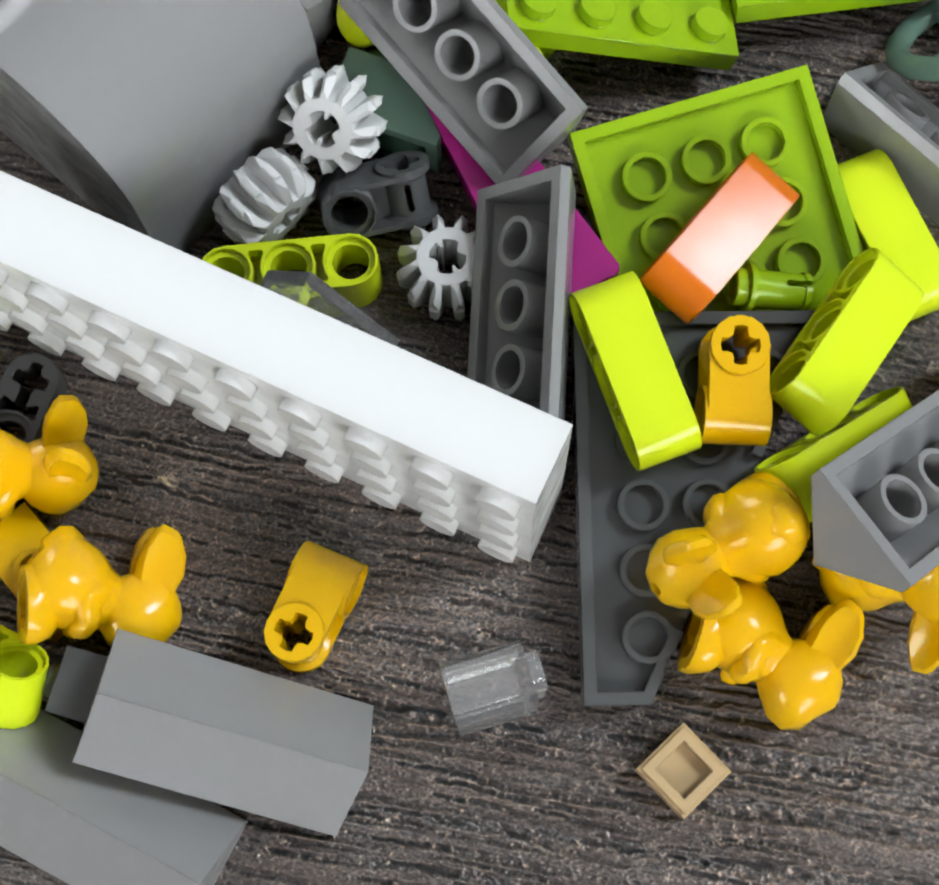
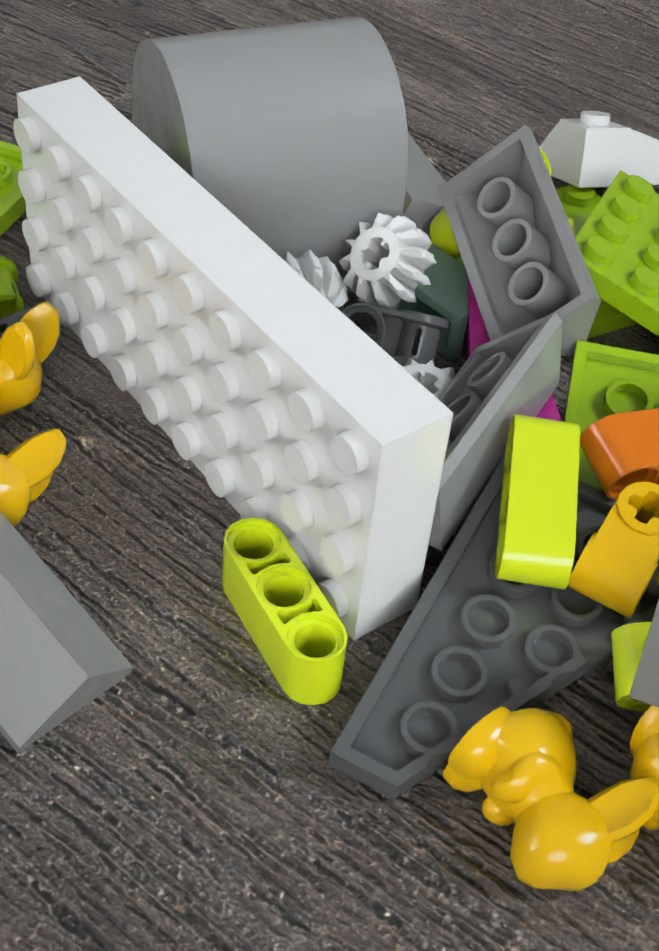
camera: 20 degrees right, 30 degrees down
(317, 595) = (139, 557): yellow piece -> none
(443, 557) = (283, 611): none -> neon yellow beam
(493, 686) = (250, 676): clear brick -> none
(682, 771) = (394, 873): tan tile -> none
(747, 534) = (575, 660): yellow animal -> none

